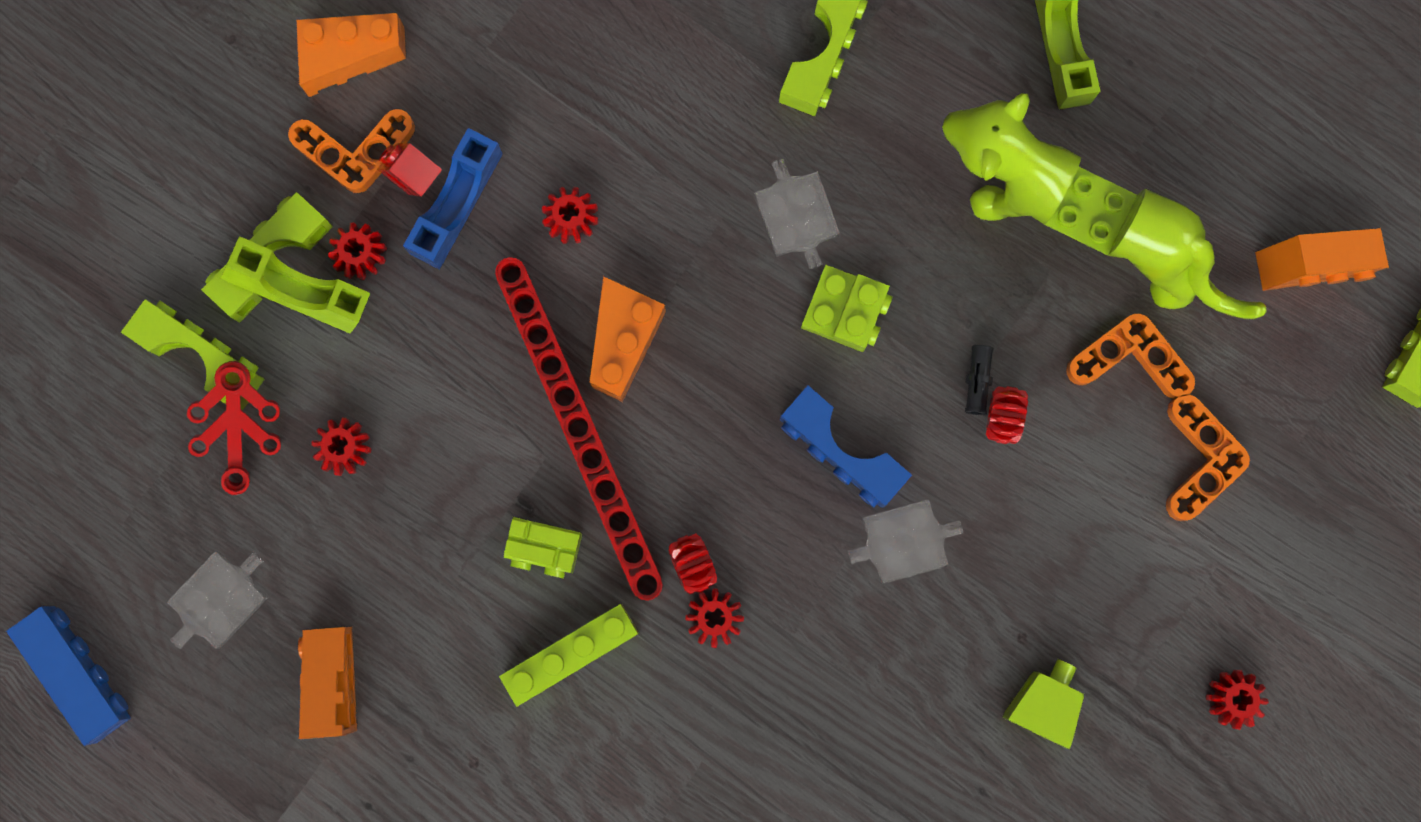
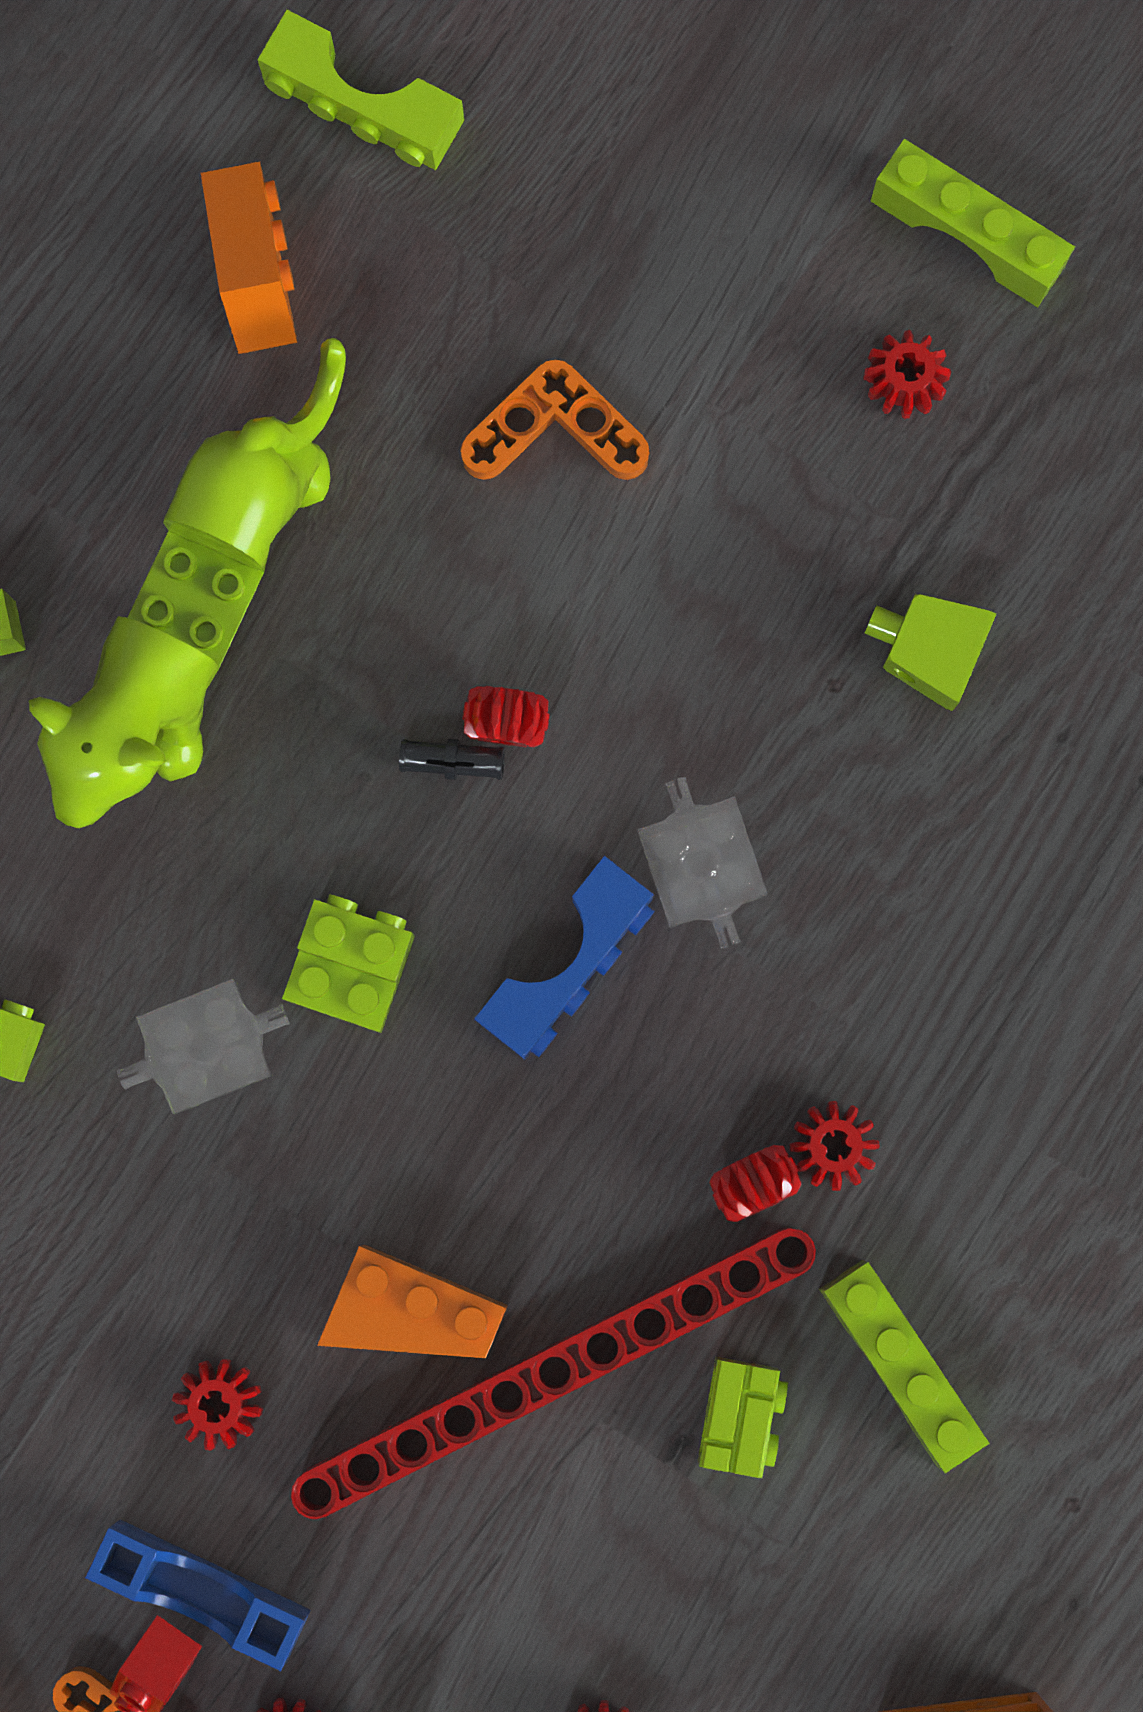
camera: 85 degrees left, 0 degrees up
(1129, 344) = (388, 537): orange beam -> none
(1363, 727) = (933, 195): none -> lime arch

